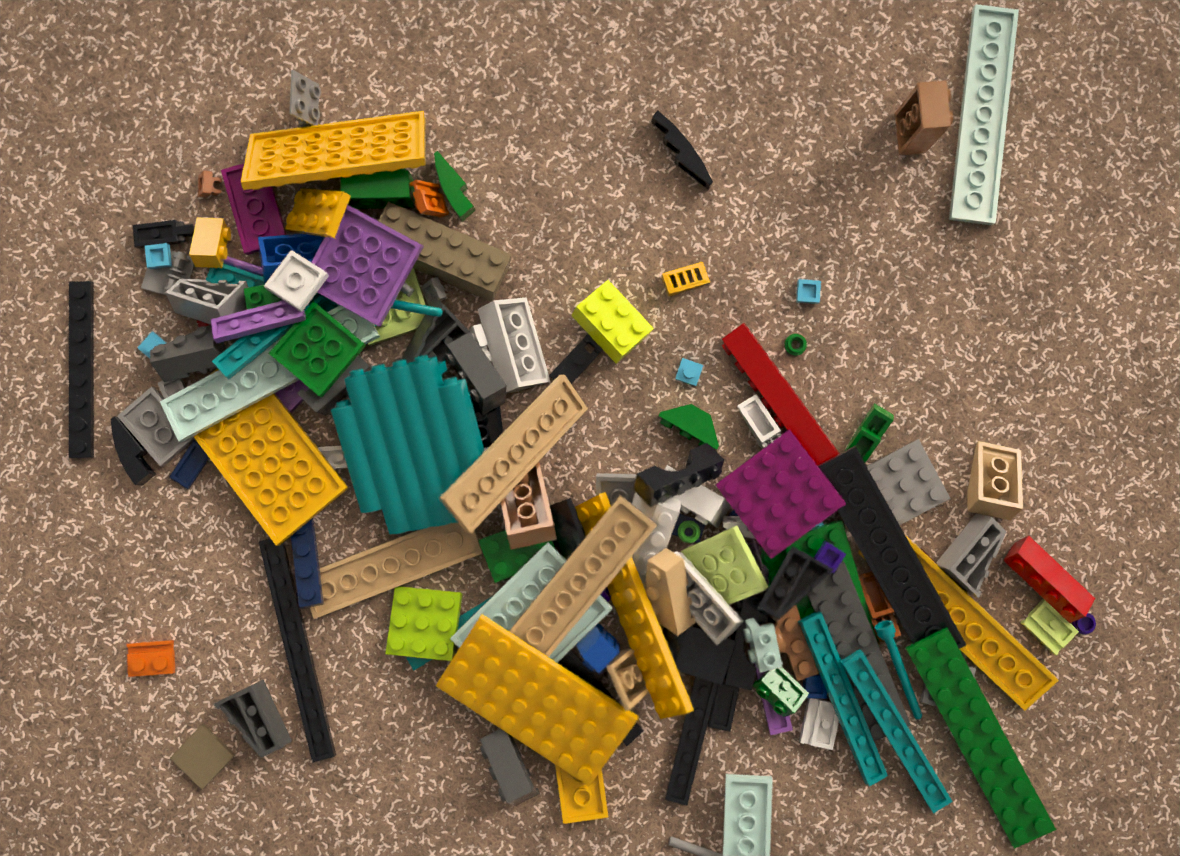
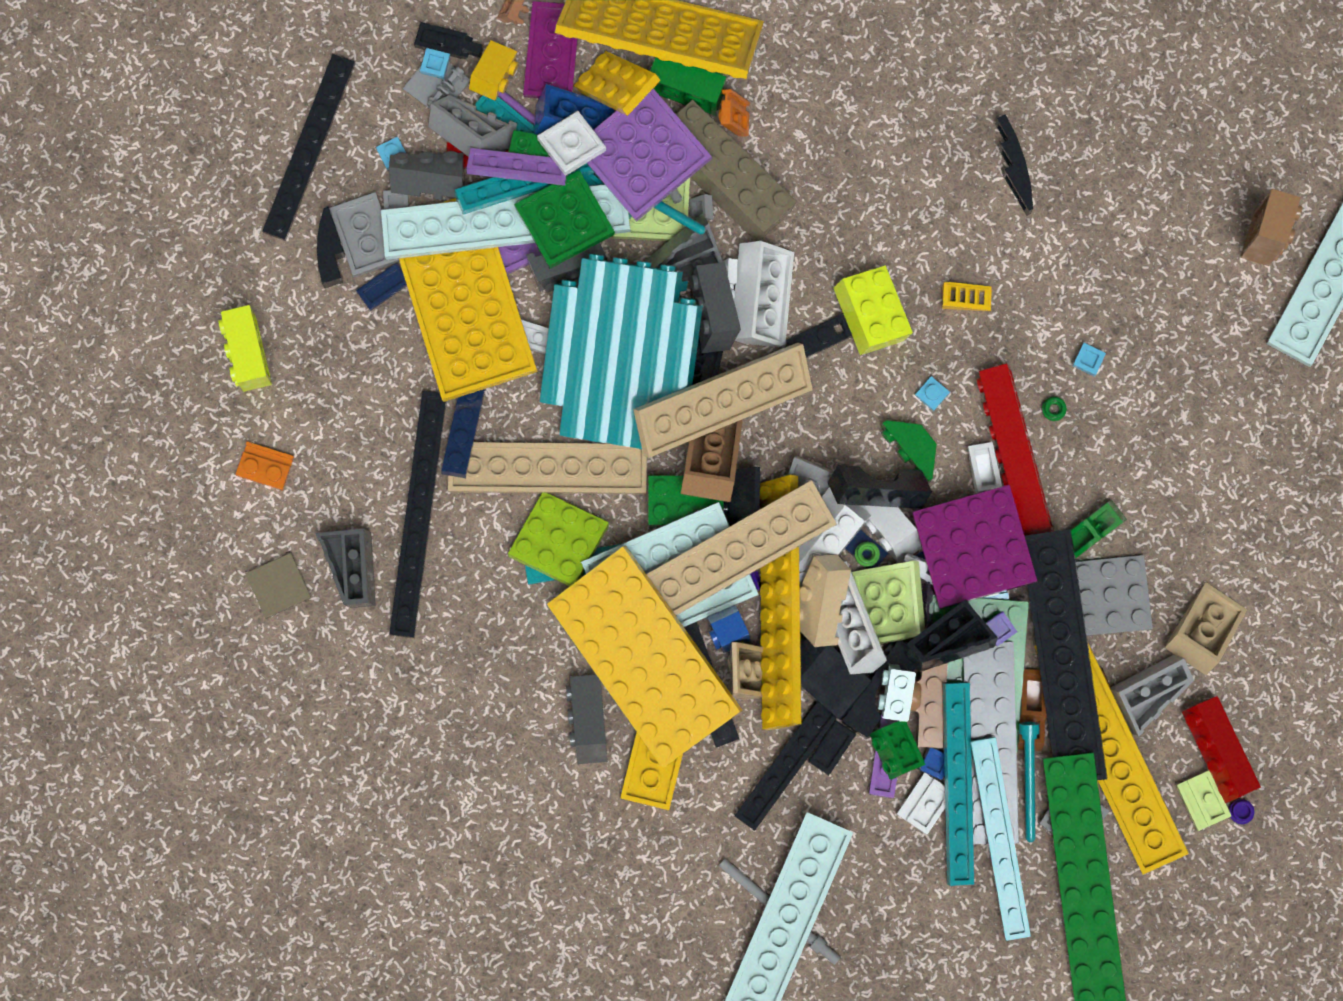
camera: 20 degrees right, 5 degrees down
(90, 567) = (244, 348): none -> neon yellow brick
(453, 187) = (763, 111): green slope -> none

